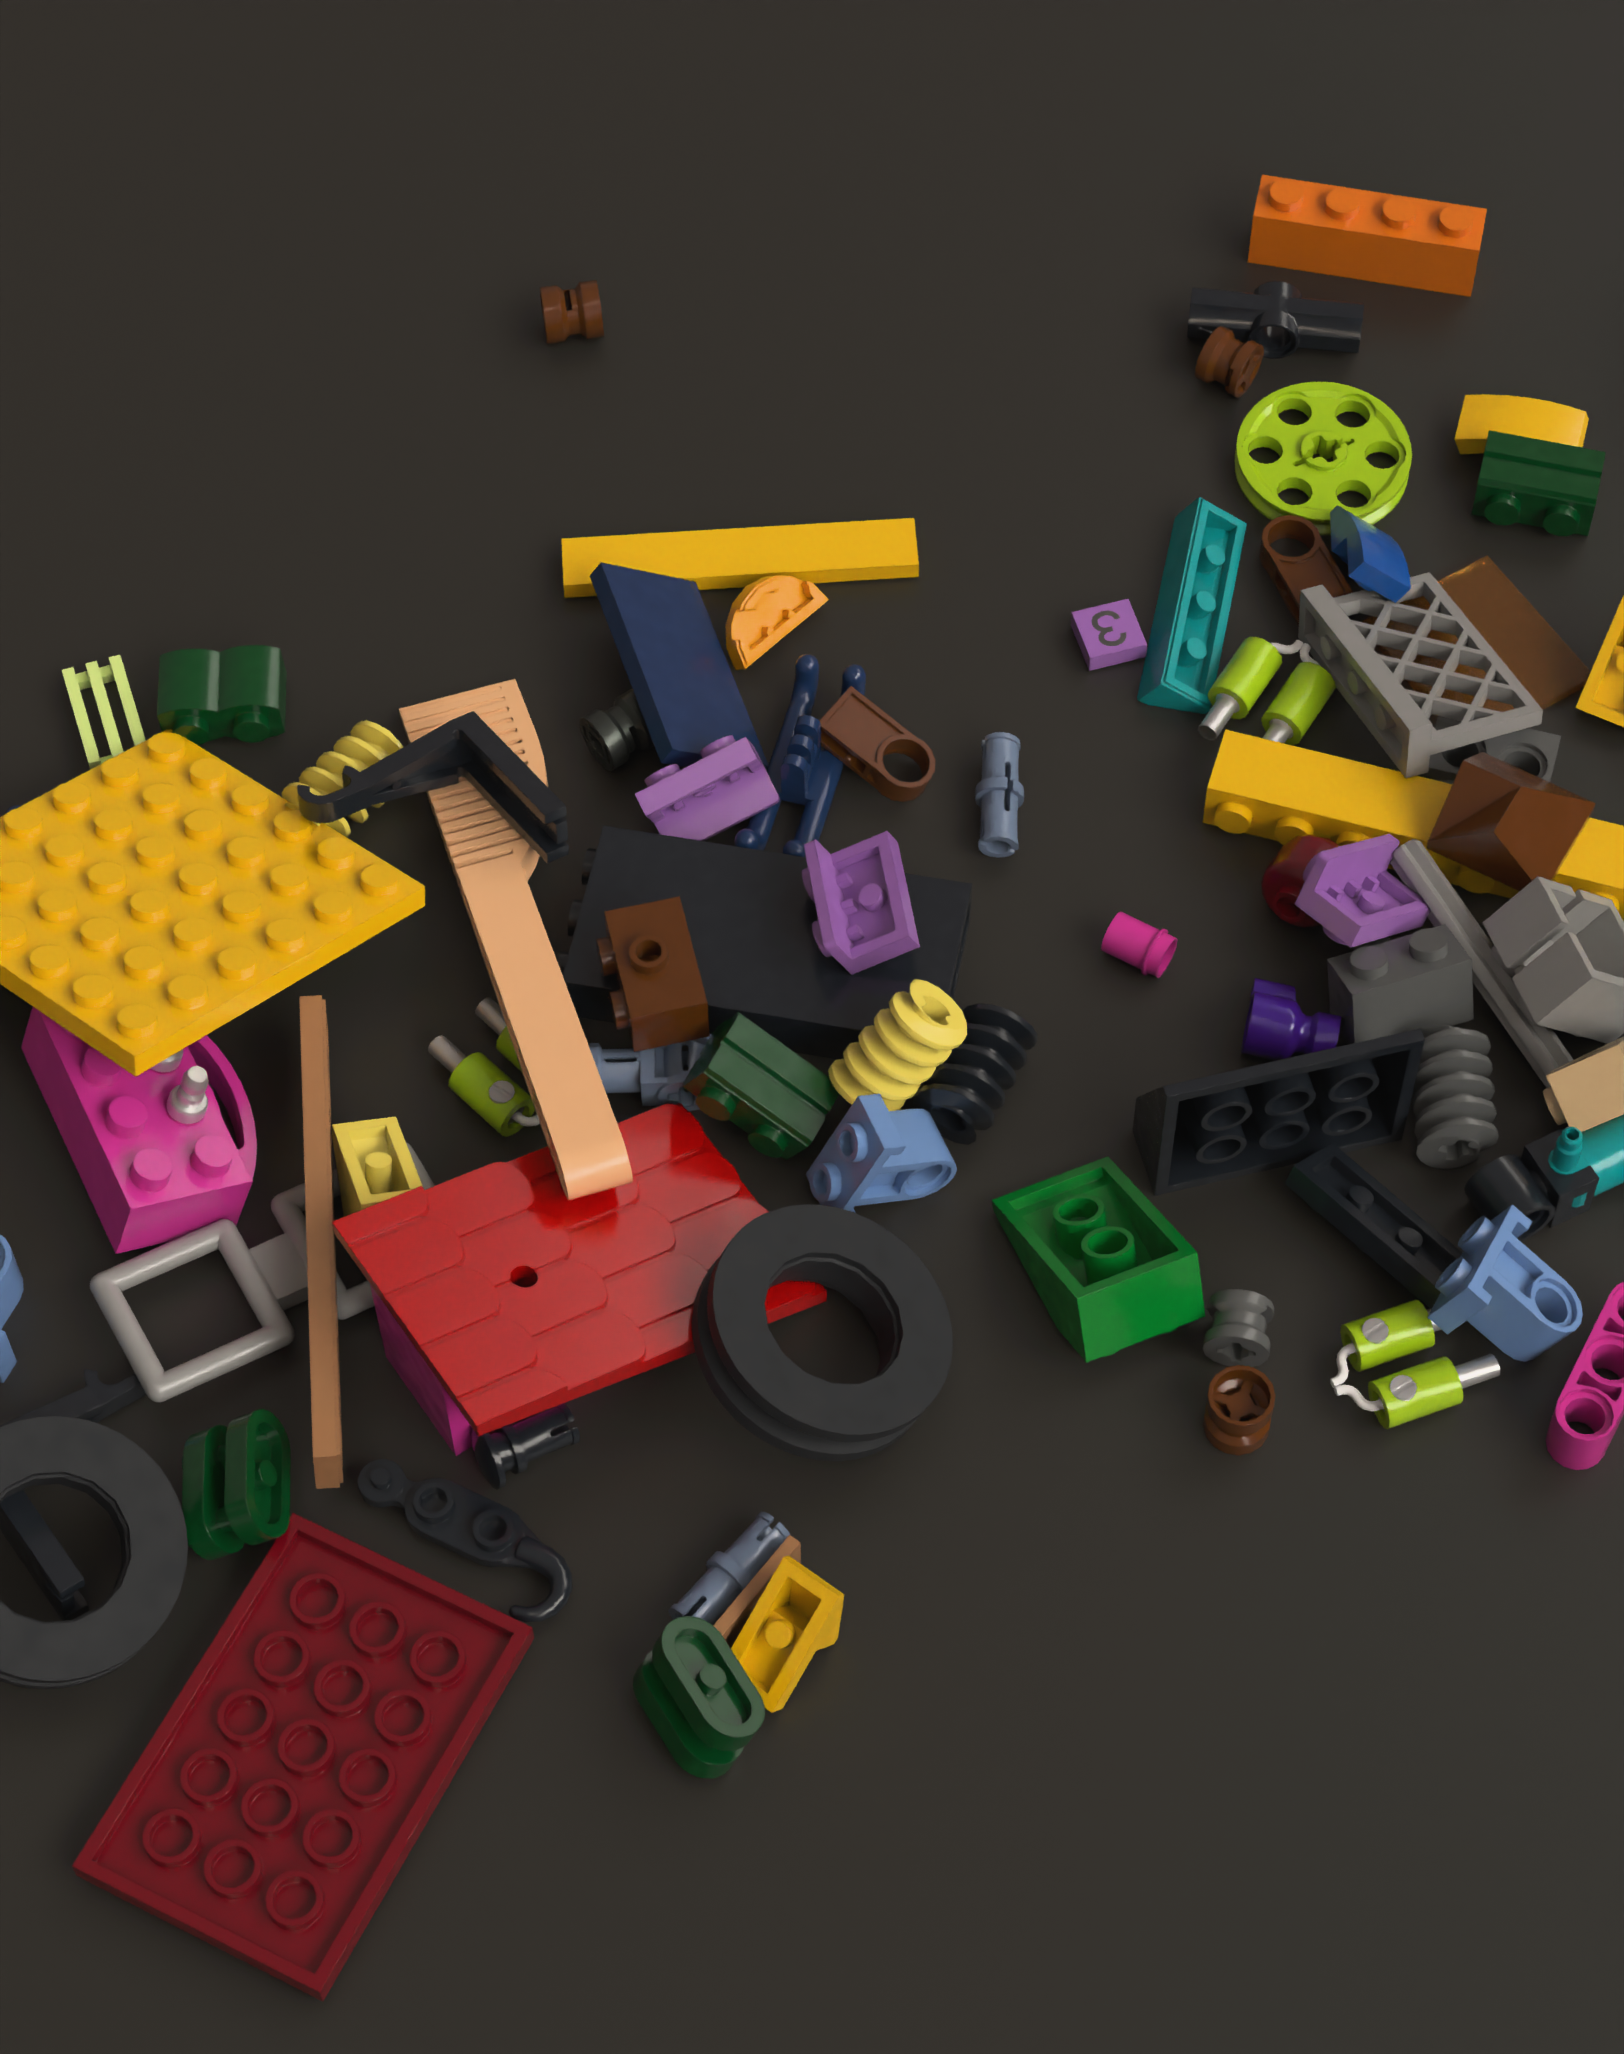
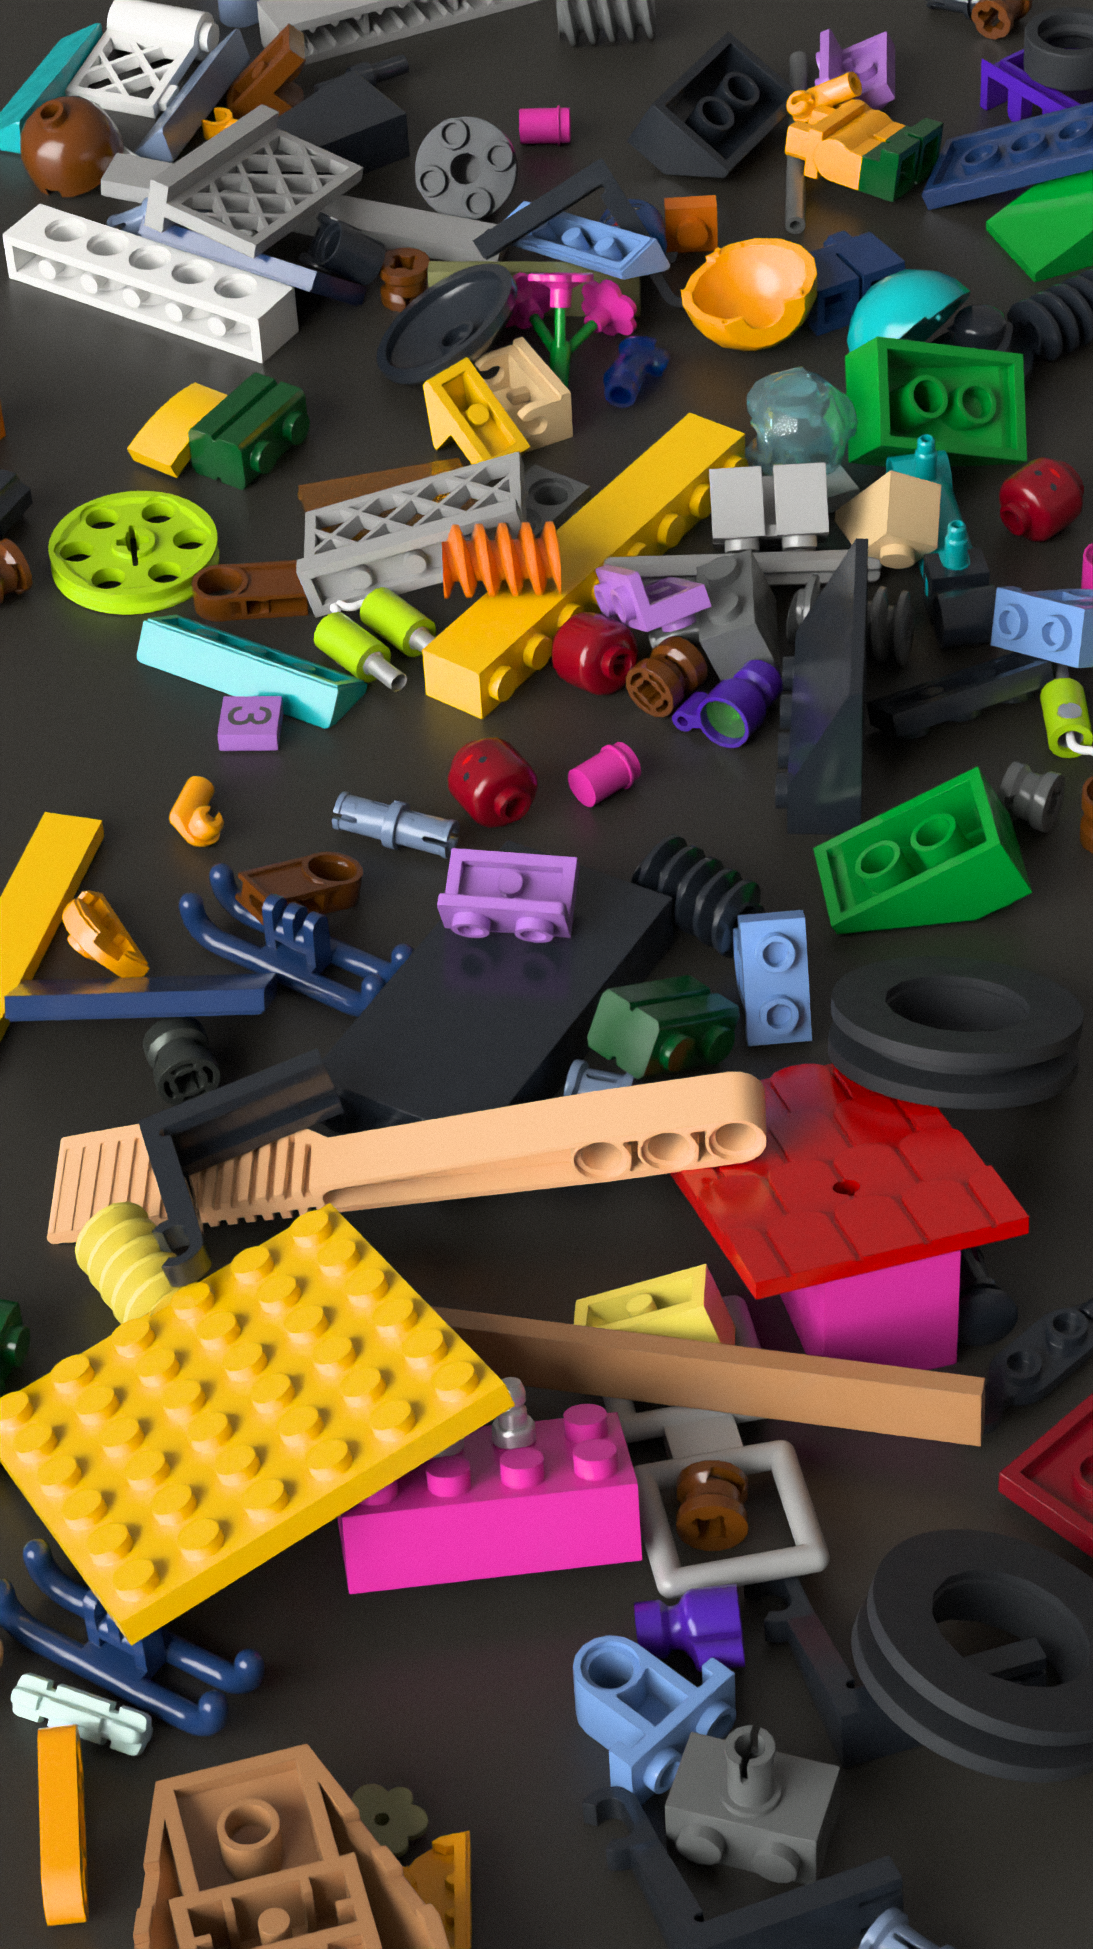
camera: 70 degrees left, 15 degrees down
(67, 1329) = (701, 1624): none -> dark purple piece
(197, 1296) = (712, 1505): none -> reddish brown wheel
(236, 1484) = (934, 1472): dark green brick -> none
(482, 1082) = (550, 1230): lime piece -> none
(655, 974) = (522, 1048): reddish brown brick -> none
(709, 794) = (302, 992): medium lavender bracket -> none
(901, 1046) = (684, 910): light yellow piece -> none
(957, 631) = (191, 813): none -> light orange arm
(1074, 851) = (492, 782): none -> dark red head
(1285, 951) = (663, 679): none -> reddish brown wheel
(1350, 746) = (501, 559): none -> orange piece
(1371, 555) = (268, 534): blue slope -> none
(1508, 822) = (614, 508): reddish brown slope -> none

